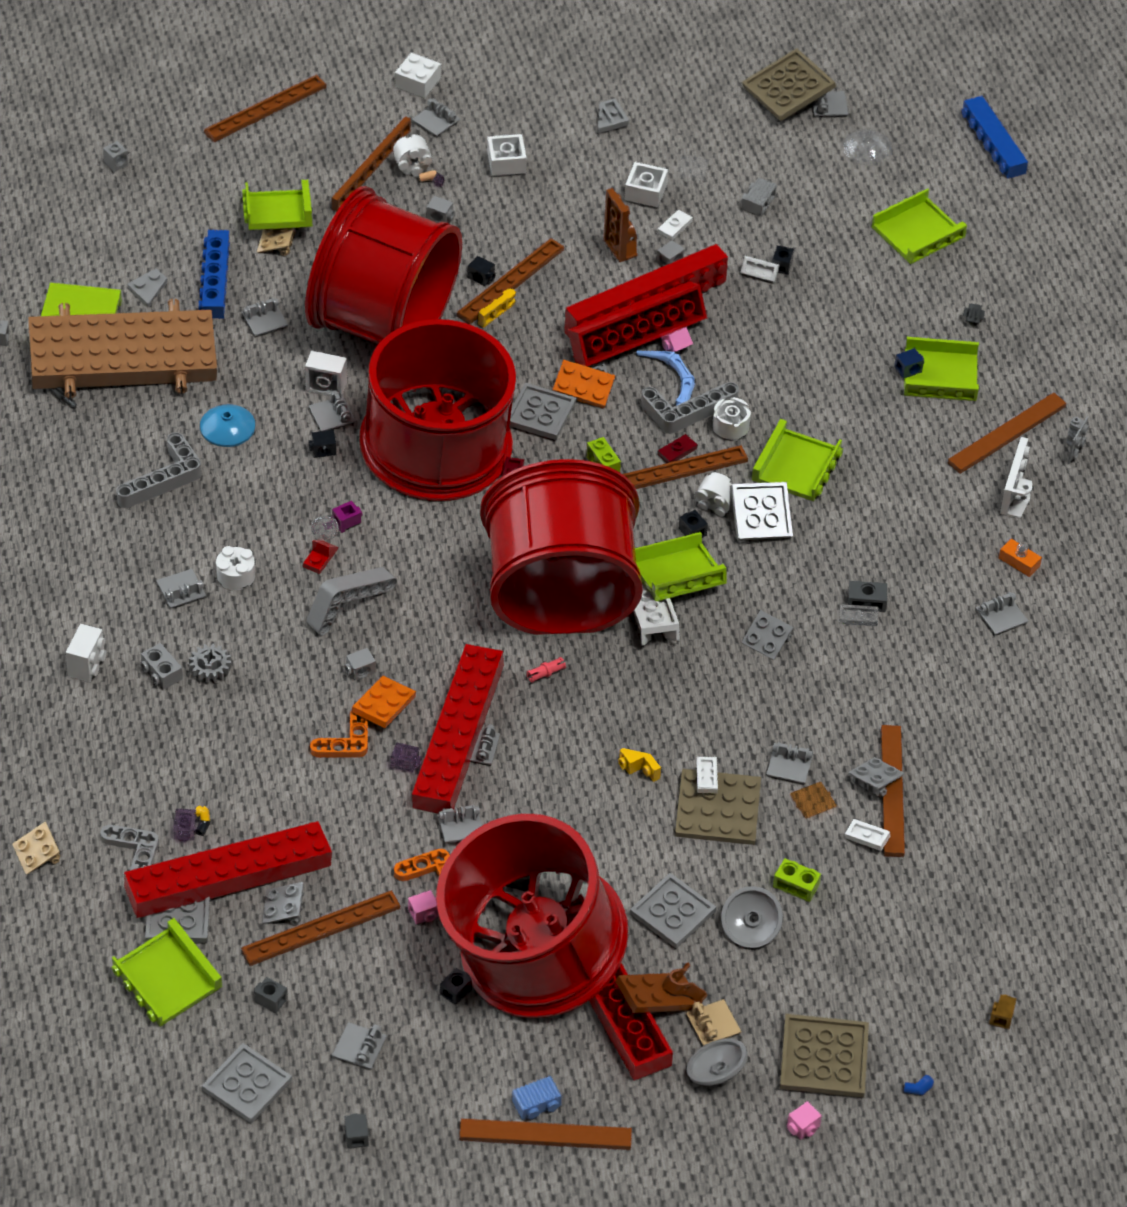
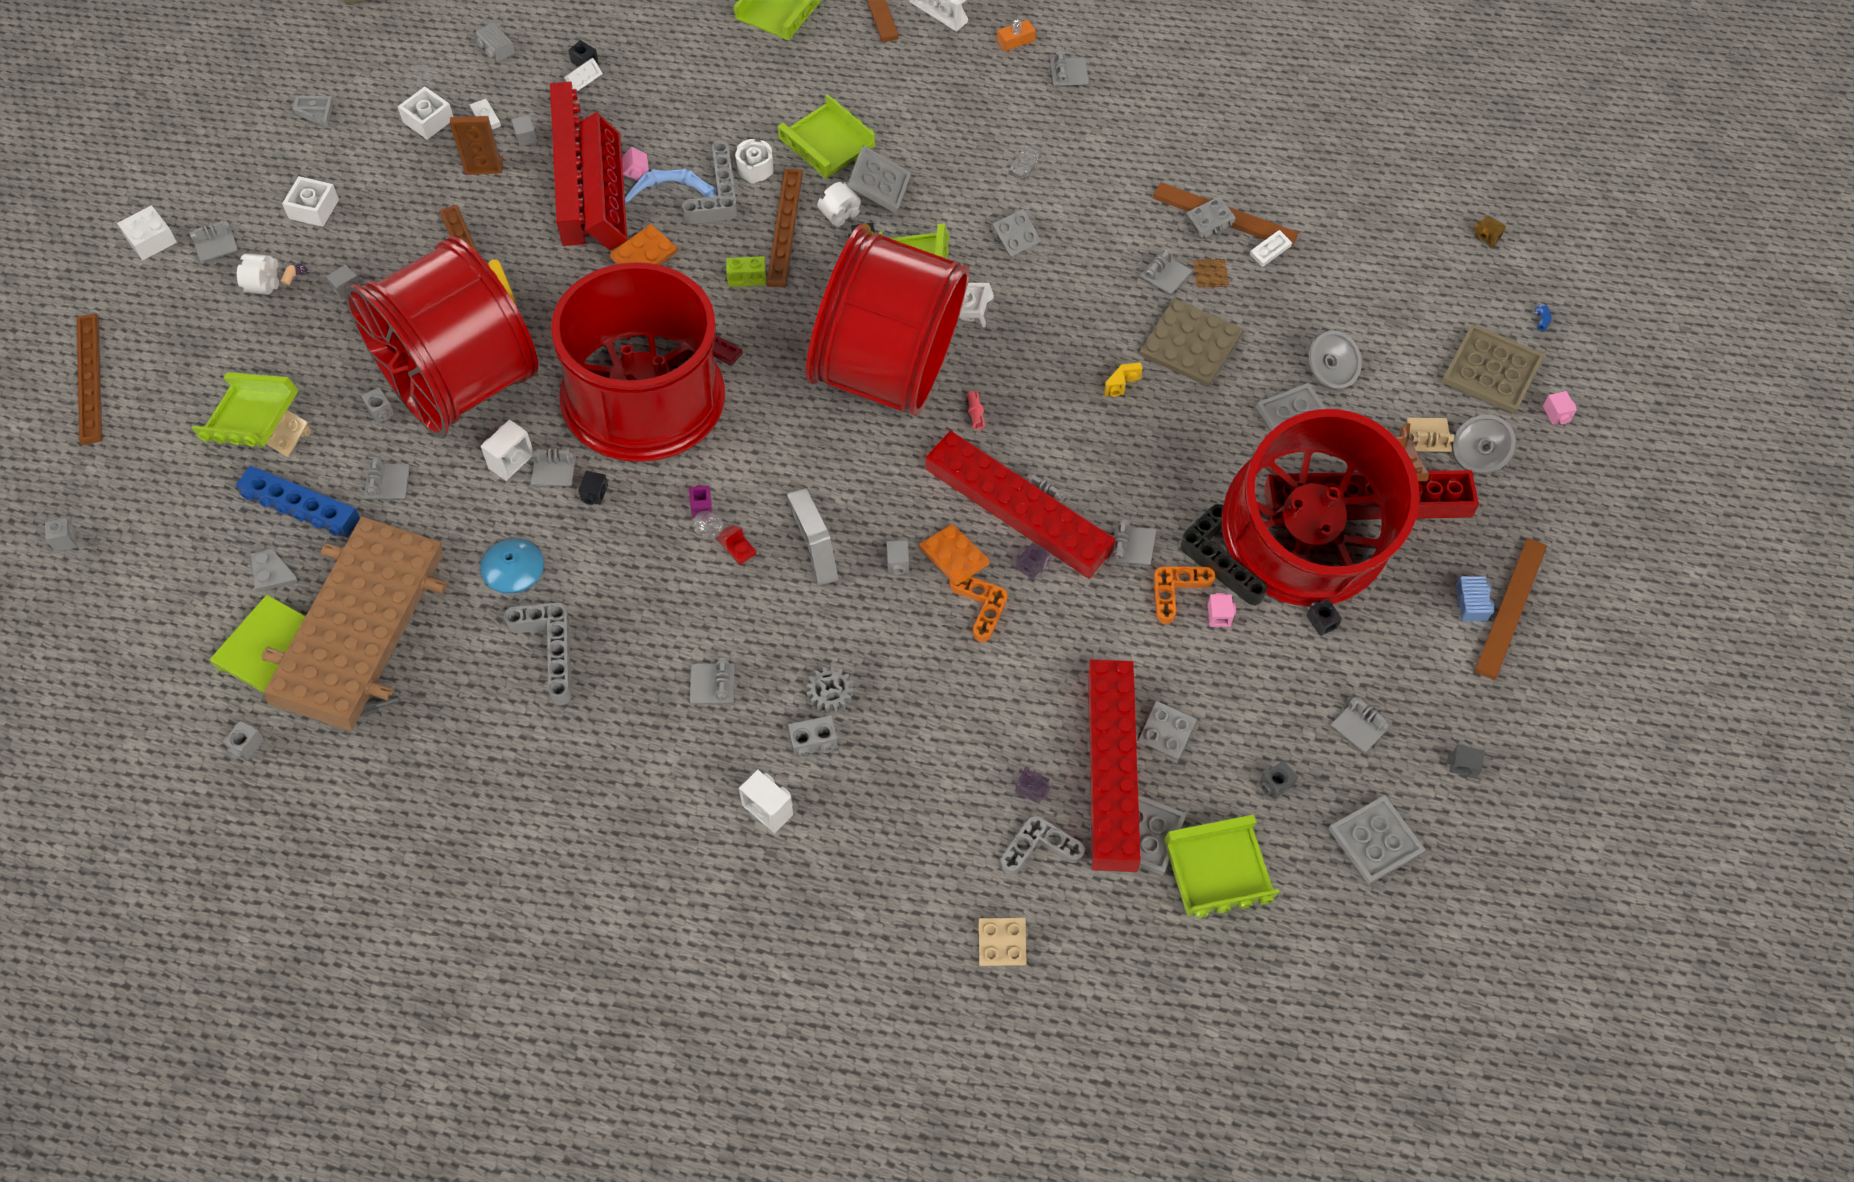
camera: 65 degrees left, 10 degrees up
(203, 813) = (1035, 767): arm -> none
(235, 568) = (717, 622): white brick -> none
(320, 928) = (1206, 710): dark orange tile -> none
(371, 163) = (240, 315): dark orange tile -> none
(677, 449) = (761, 216): dark red plate -> none
(707, 775) = (1163, 332): white plate -> none
(797, 880) = (1300, 315): lime brick -> none
(868, 594) = (1007, 147): dark grey brick -> none
(909, 363) = (762, 19): dark blue brick -> none

